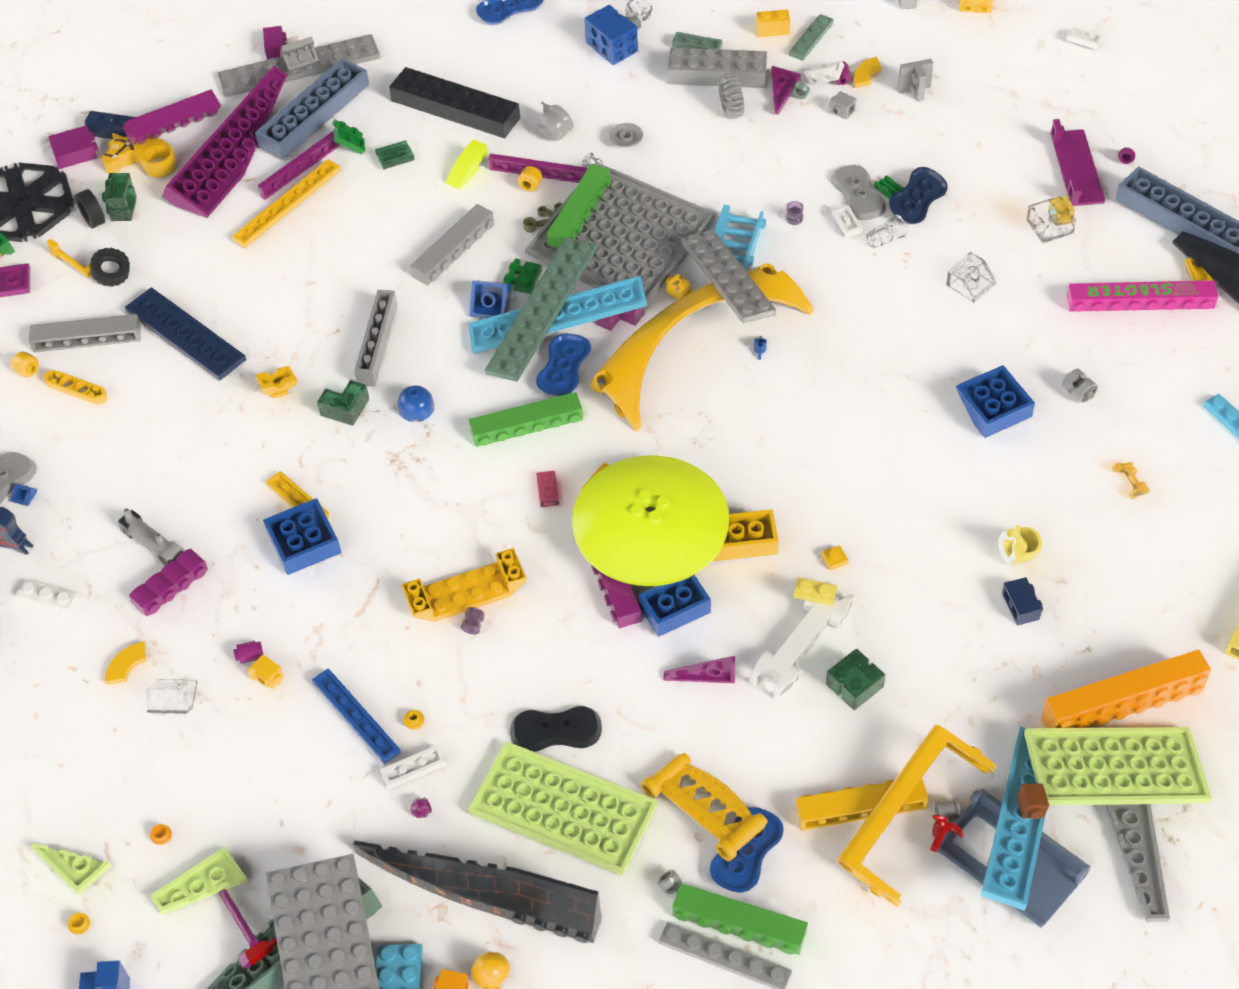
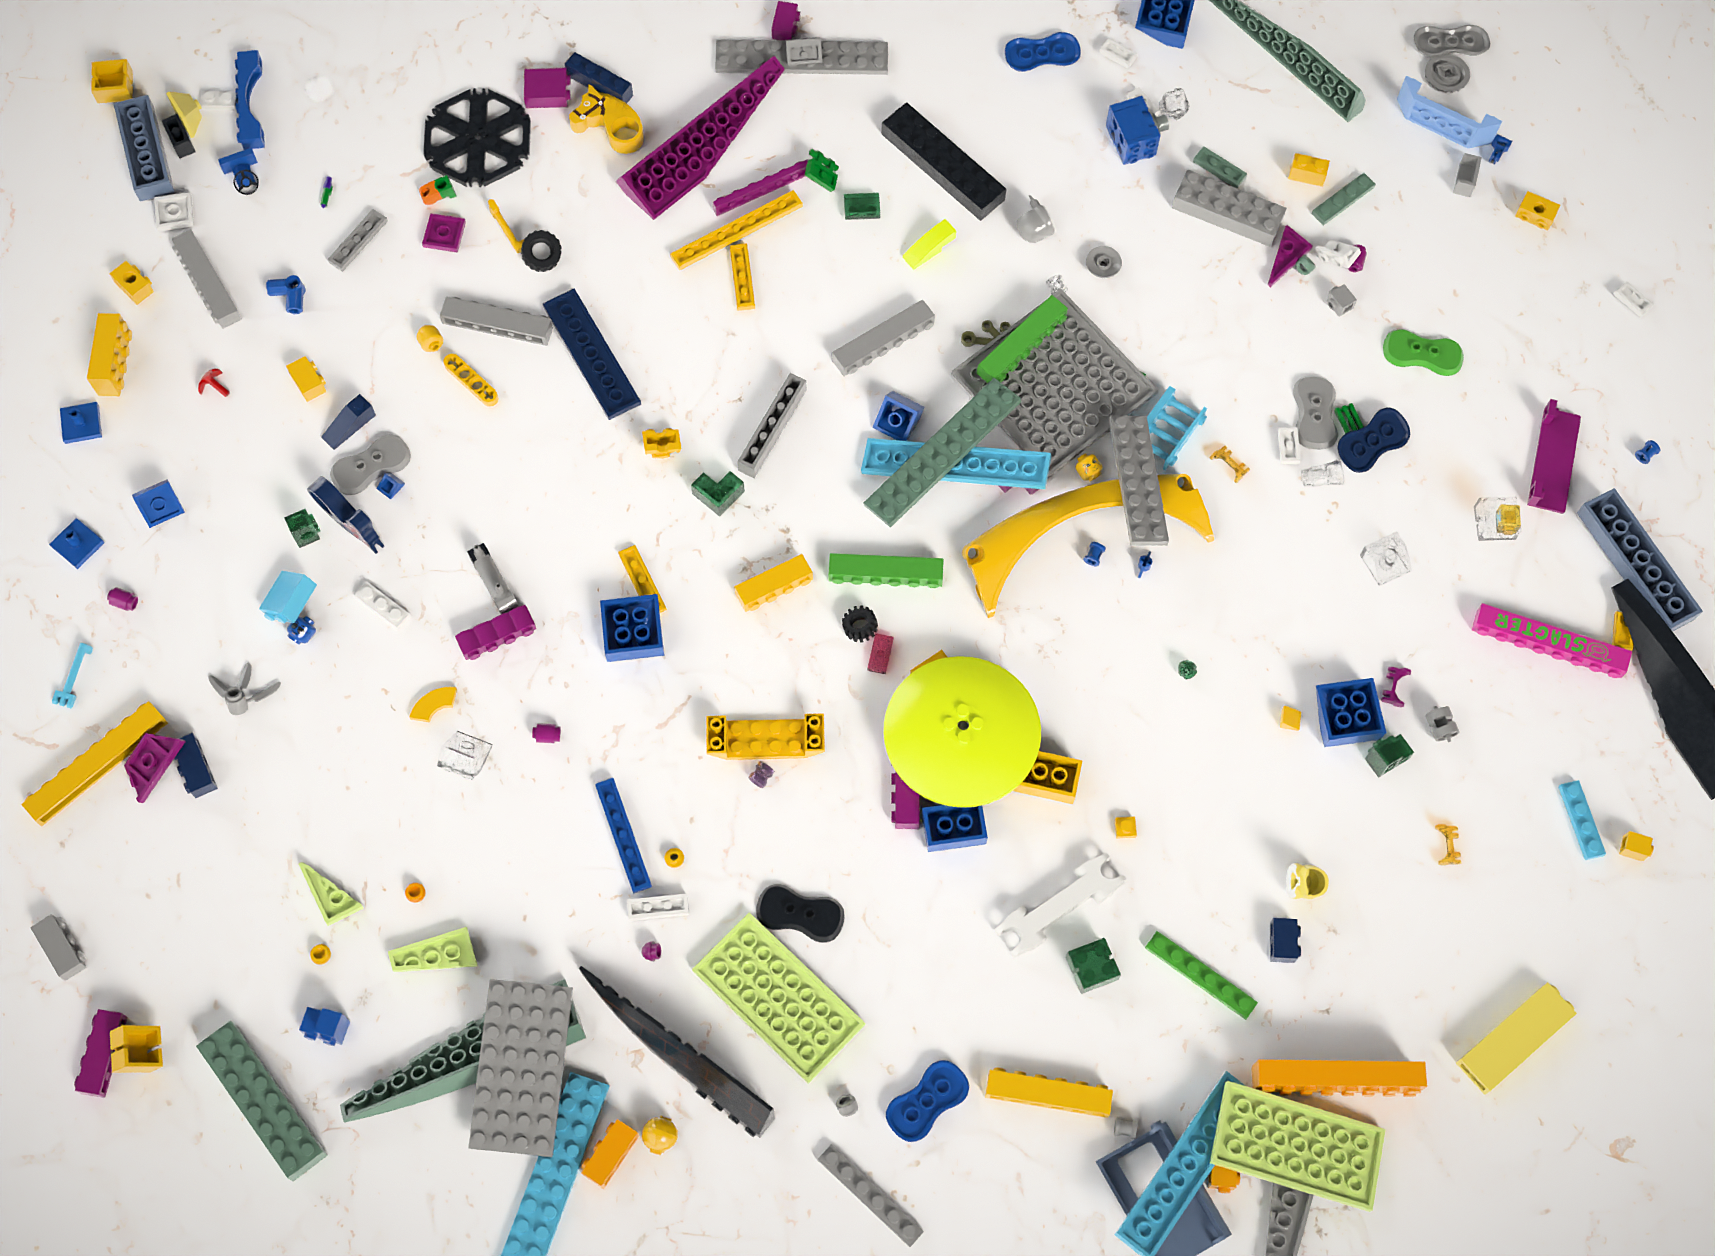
camera: 15 degrees right, 15 degrees up
(90, 208) = (540, 174): black tyre -> none
(119, 197) = (573, 169): clear green piece -> none
(171, 117) = (652, 88): magenta brick -> none
(257, 949) = (464, 1041): magenta piece -> none
(266, 672) = (556, 761): yellow window -> none
(305, 237) = (742, 277): none -> yellow tile
(312, 108) = (797, 121): sand blue brick -> none
(415, 403) = (786, 513): cylinder -> none
(424, 461) = (773, 583): none -> yellow brick
(522, 475) = (864, 632): none -> black tyre
(527, 276) = (945, 401): green plate -> none
(530, 178) = (987, 284): yellow head -> none
(548, 169) = (999, 273): magenta plate -> none
(561, 372) = (936, 529): blue plate -> none
(711, 354) = (1094, 554): none -> blue bush
(712, 671) = (955, 906): magenta wing -> none
(730, 836) = (918, 1085): yellow piece -> none
(731, 96) = (1228, 252): light grey gear -> none
(740, 919) = (896, 1166): bright green brick -> none
(794, 213) = (1237, 414): clear purple wheel -> none
(811, 251) = (1239, 471): none -> clear yellow piece
(815, 591) = (1090, 862): light yellow plate -> none
(835, 414) = (1187, 669): none -> clear green plate
(865, 71) = (1382, 263): yellow tile -> none
(895, 797) = (1079, 1106): yellow piece -> none
(915, 78) = (1430, 294): light grey bracket -> none
(917, 125) = (1438, 355): none -> bright green plate
(940, 829) = (1111, 1146): red plant -> none
(943, 425) = (1290, 718): none -> yellow slope
(959, 656) = (1201, 975): none -> bright green plate
(1020, 363) = (1397, 674): none -> magenta piece
(1032, 801) = (1201, 1158): dark orange brick -> none
(1044, 423) = (1388, 754): none -> clear green brick
(1060, 820) = (1223, 1179): none -> light orange brick
(1126, 155) = (1611, 464): magenta plate -> none
(1151, 138) = (1647, 452): none -> blue bush

